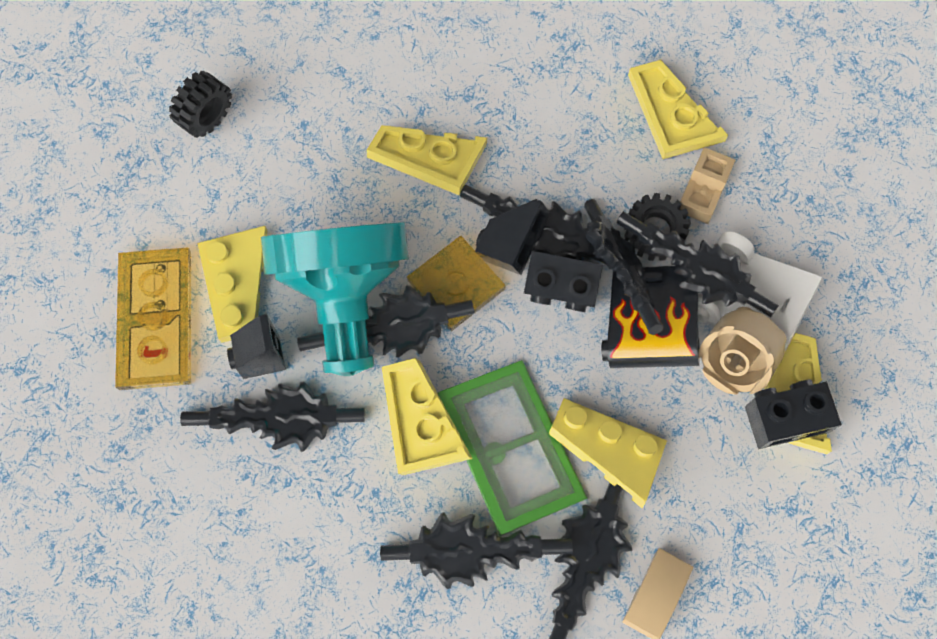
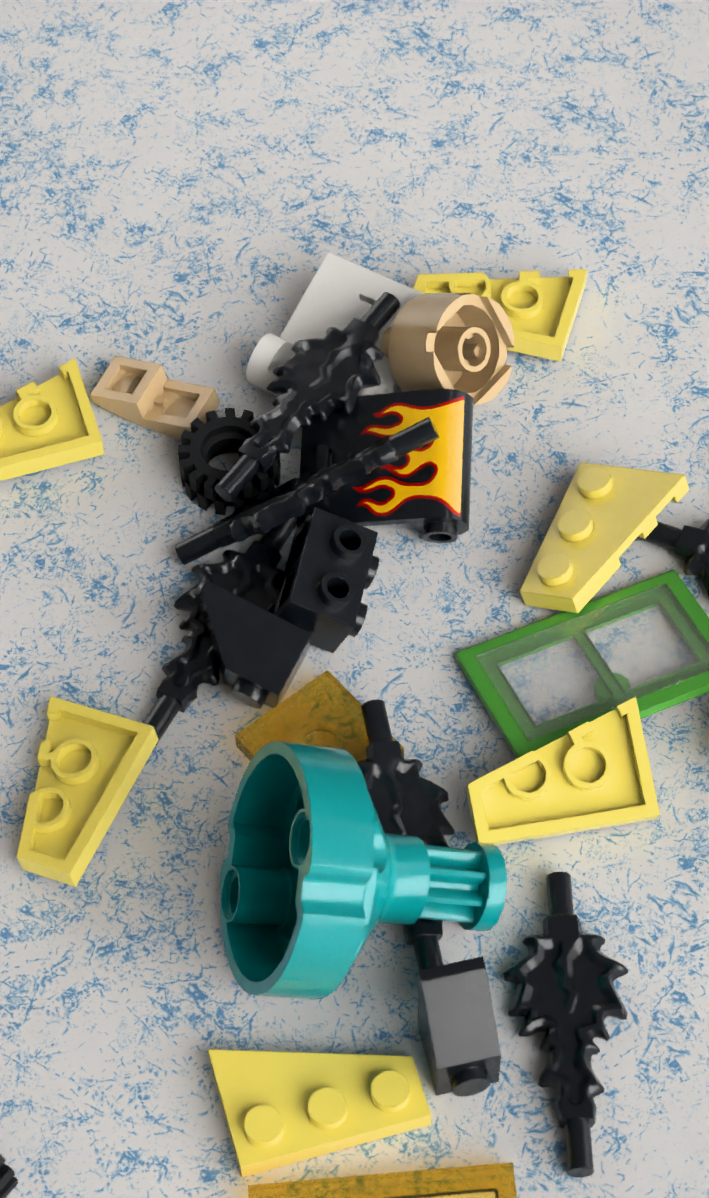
camera: 90 degrees left, 15 degrees down
(792, 414) = (544, 297): black brick -> none

